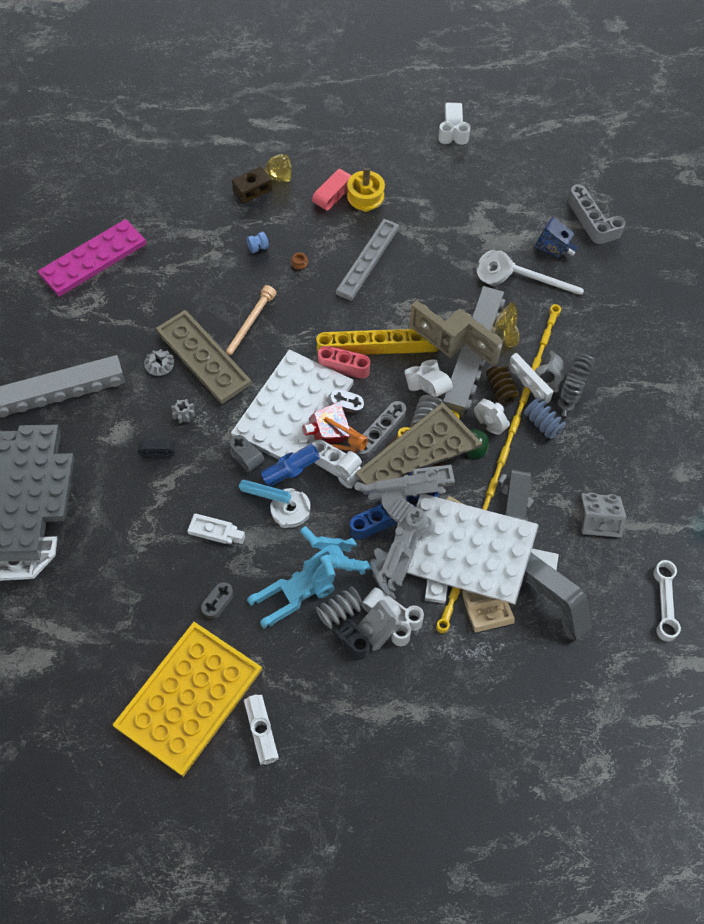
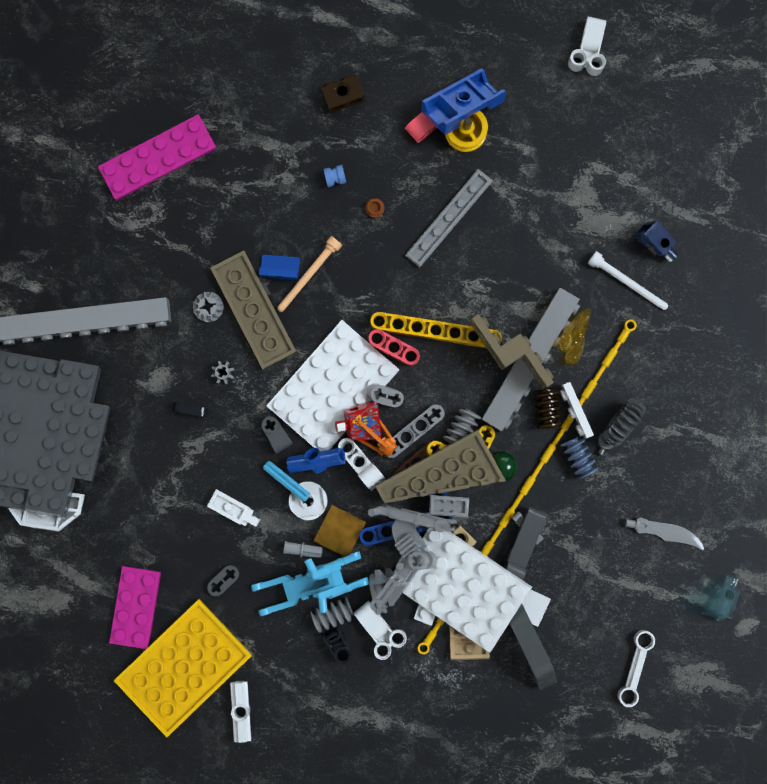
camera: 15 degrees right, 25 degrees up
(126, 647) = (135, 607): none -> dark pink plate
(221, 321) = (279, 267): none -> blue panel
(279, 168) = (377, 77): clear yellow piece -> none
(294, 554) = (302, 550): none -> light grey axle
(329, 524) = (339, 531): none -> pearl gold slope
(349, 169) = (448, 110): none -> blue piece
(379, 624) = (363, 641): light grey plate -> none
(428, 378) = (473, 388): white piece -> none
(492, 416) = (526, 447): white plate -> none
(502, 272) = (589, 266): white plate -> none
(556, 367) = (605, 405): light grey hair -> none
(588, 213) = (709, 208): light grey beam -> none
(603, 515) = (604, 569): light grey bracket -> none
(648, 470) = (666, 531): none -> light grey sword

